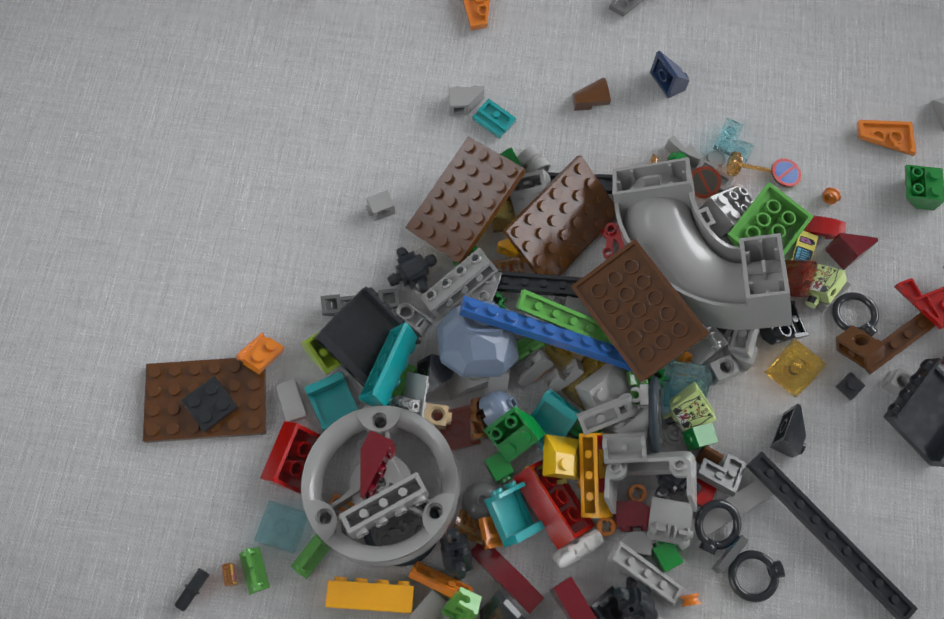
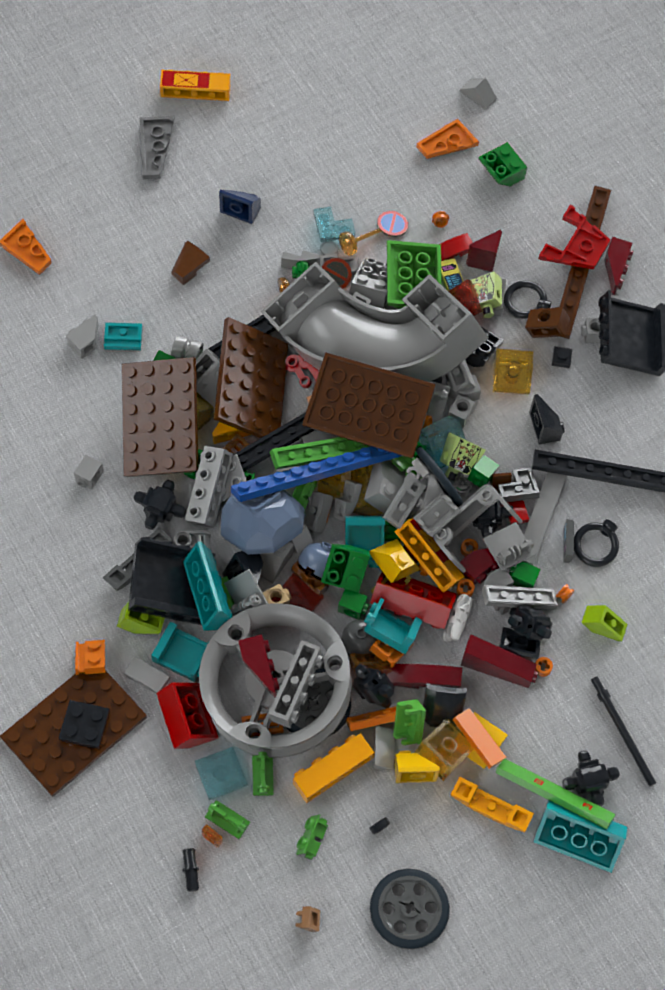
camera: 40 degrees left, 5 degrees down
(708, 544) = (547, 545): black piece -> none

